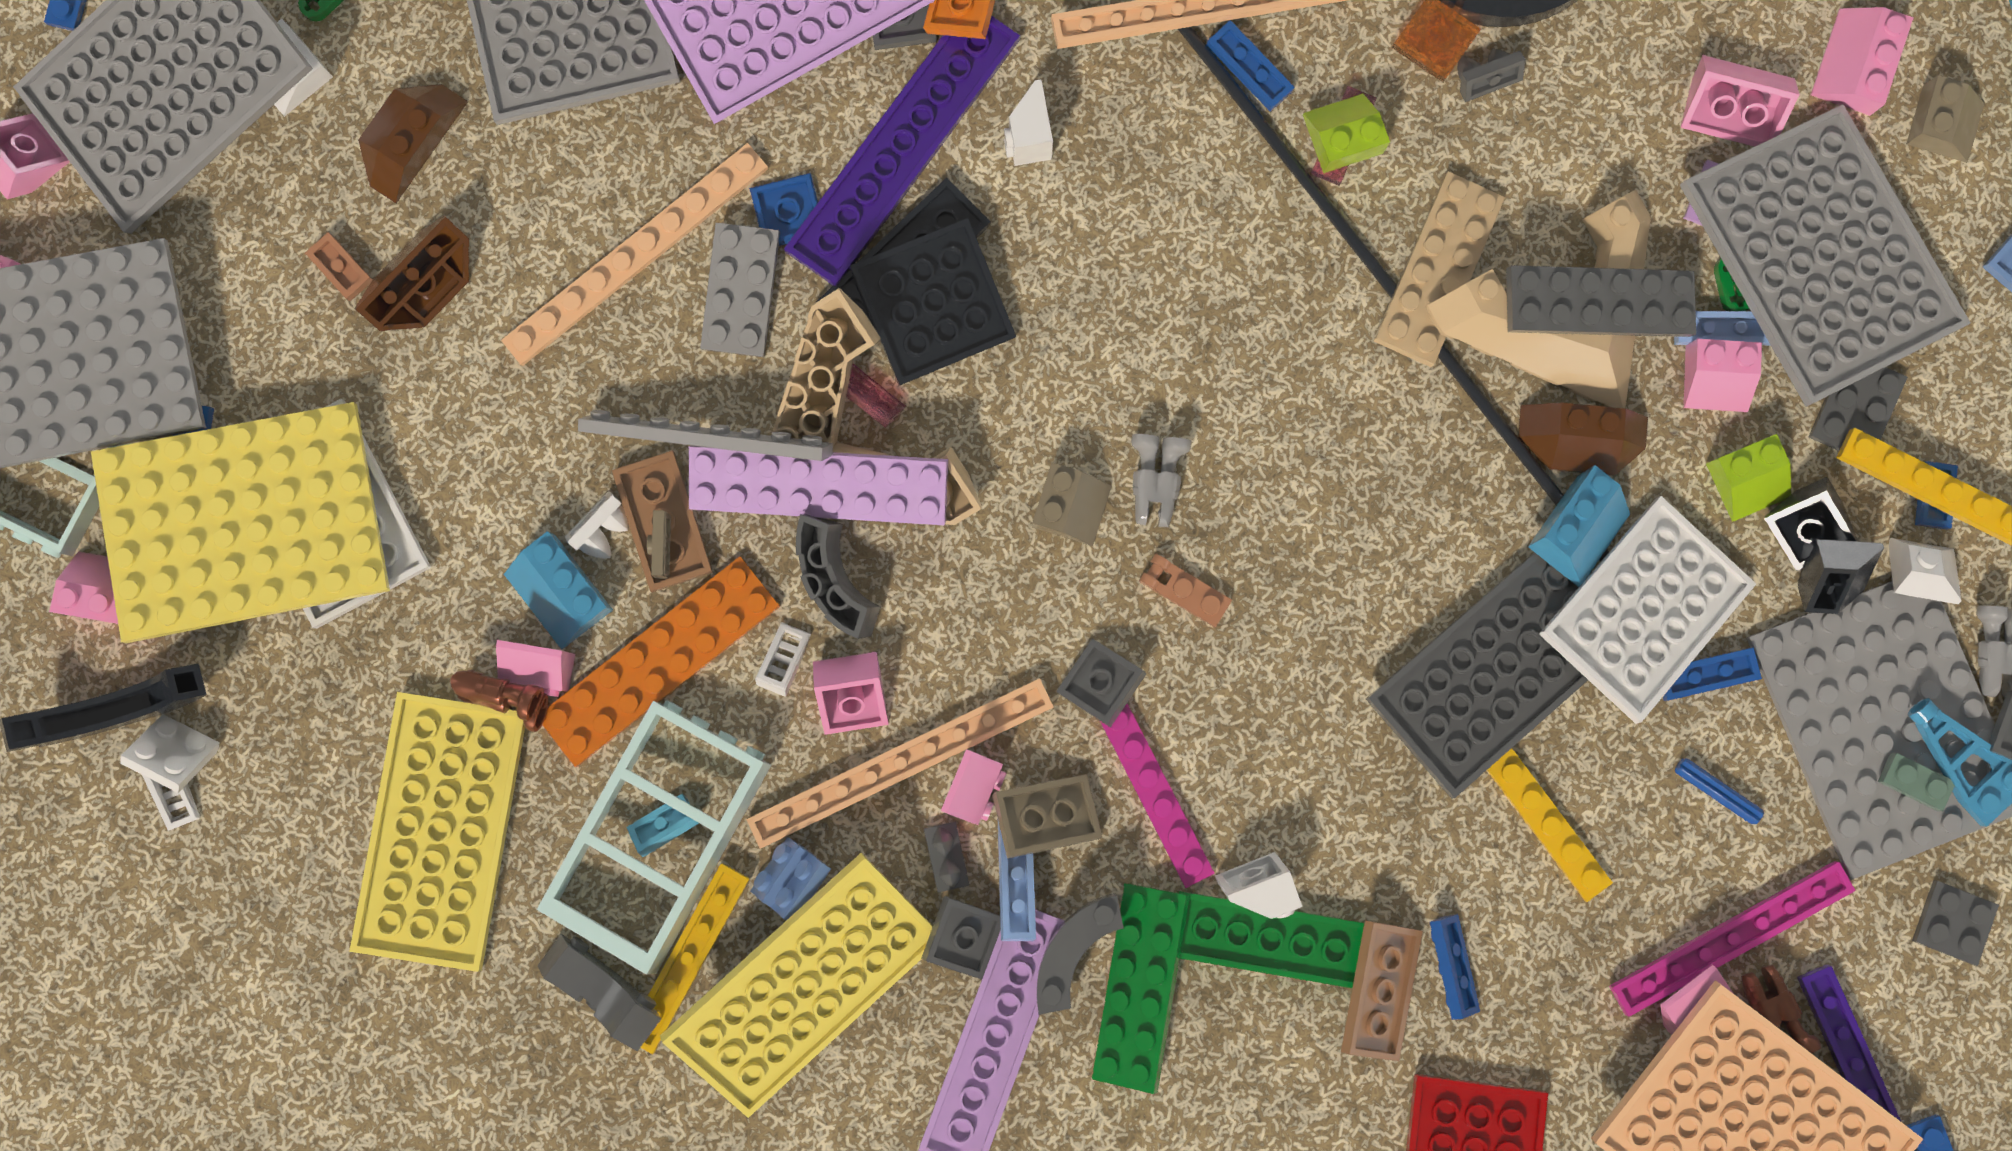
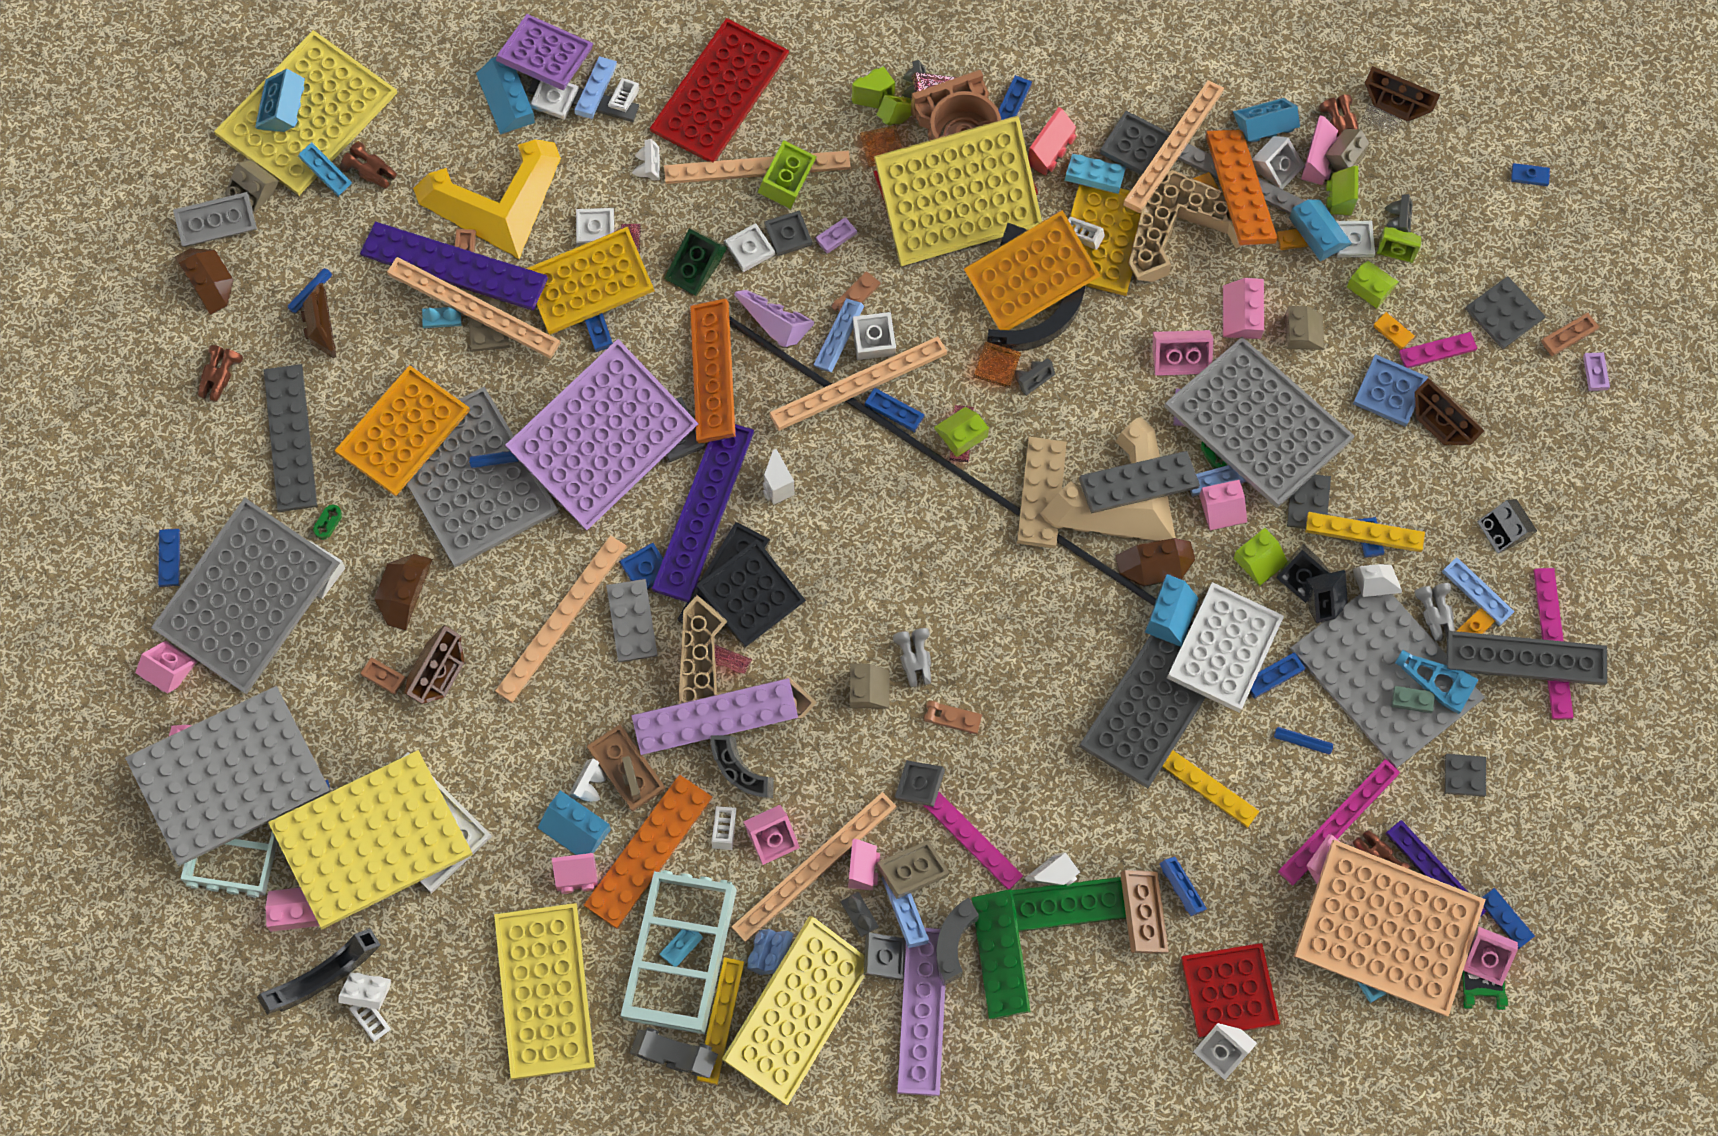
camera: 20 degrees left, 15 degrees down
(501, 695) = (559, 894): copper piece -> none
(716, 436) = (647, 704): light grey plate -> none

